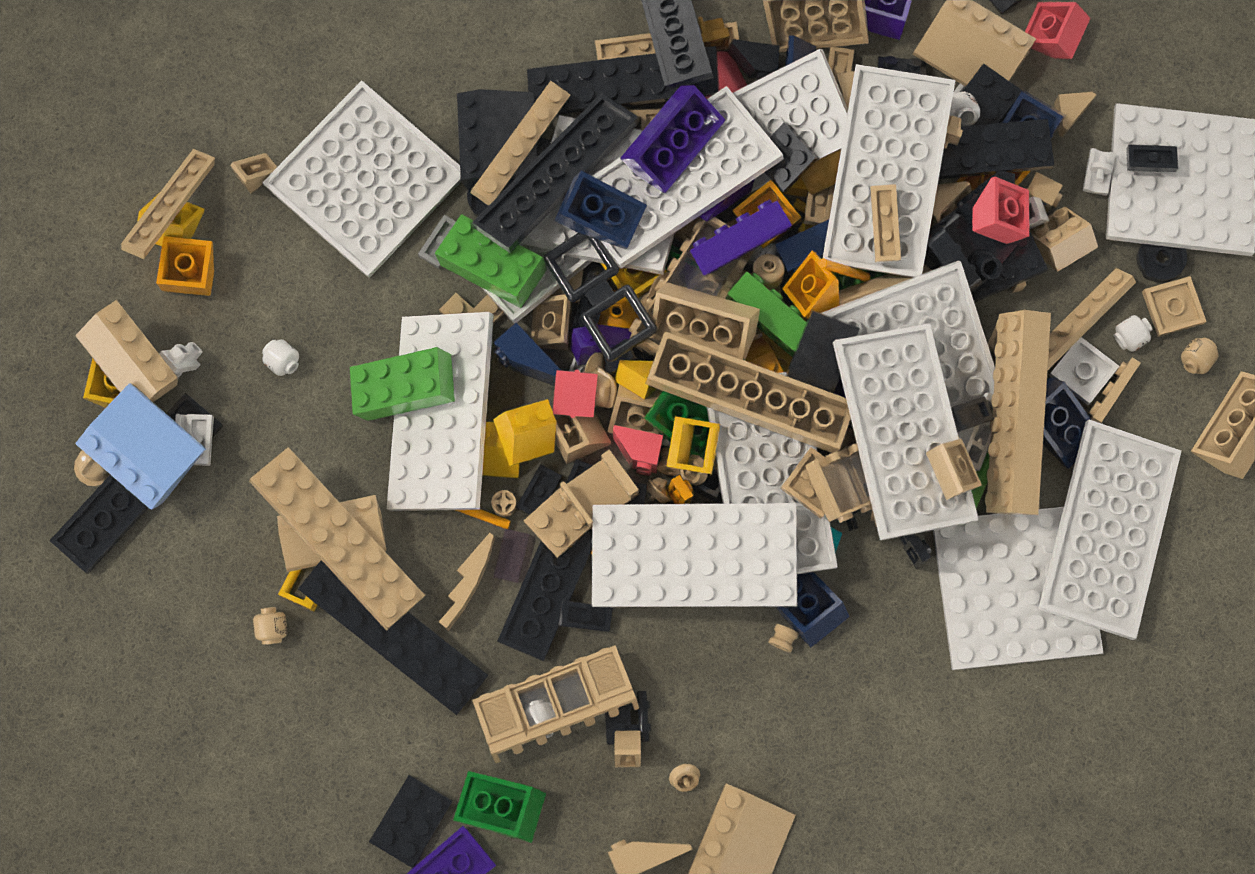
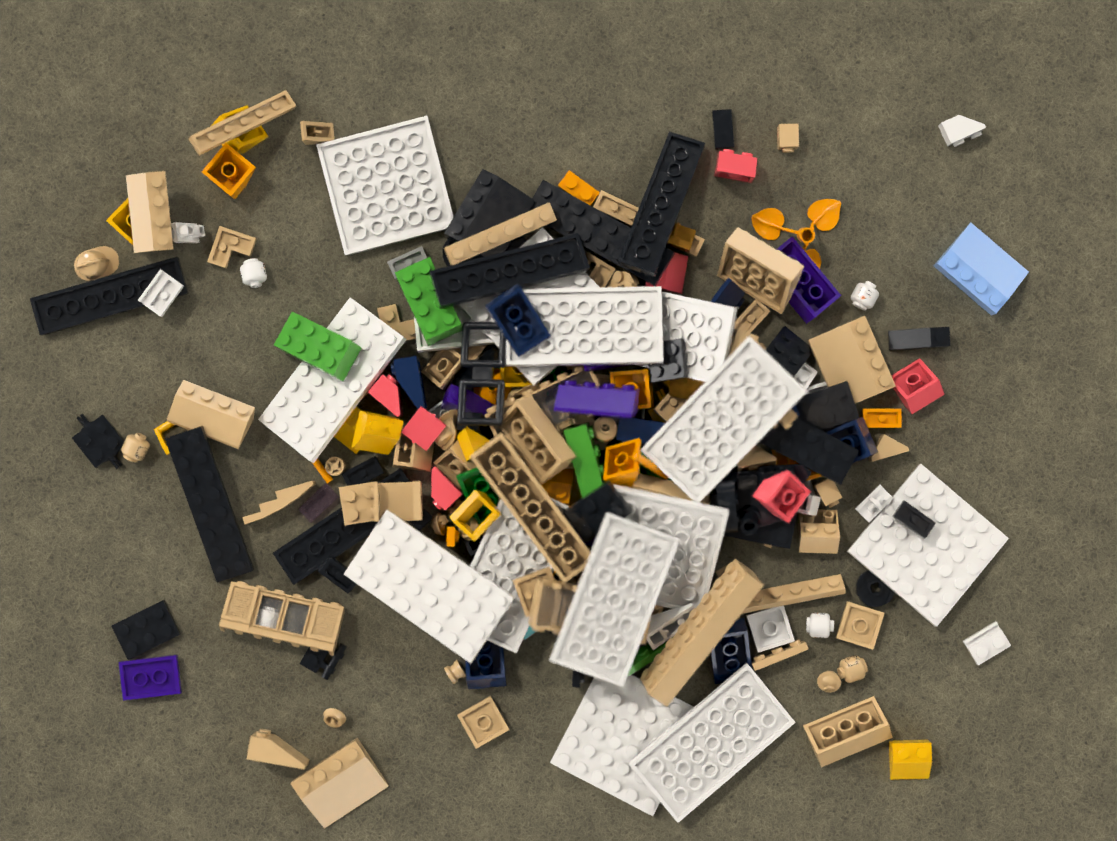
camera: 40 degrees right, 10 degrees up
(141, 446) = (122, 278): light blue slope -> none
(225, 647) = (99, 441): none -> black plate
(231, 343) = (227, 242): none -> tan plate
(337, 538) = (209, 423): tan plate -> none
(500, 806) = (206, 658): green slope -> none
(511, 387) = (388, 394): none -> coral slope
(569, 53) = (578, 188): none -> light orange plate
(627, 749) = (309, 675): tan slope -> none
(673, 138) = (599, 301): dark purple slope -> none
(754, 57) = (700, 275): black slope -> none
(850, 673) = (483, 722): none -> tan plate
(885, 223) = (696, 455): tan plate -> none
(953, 468) = (628, 646): tan slope -> none
(965, 107) = (808, 406): white head -> none
(971, 414) = (668, 613): black tile -> none
(1046, 81) = (882, 418): none -> light orange plate
(1185, 385) = (829, 681): none -> tan hat

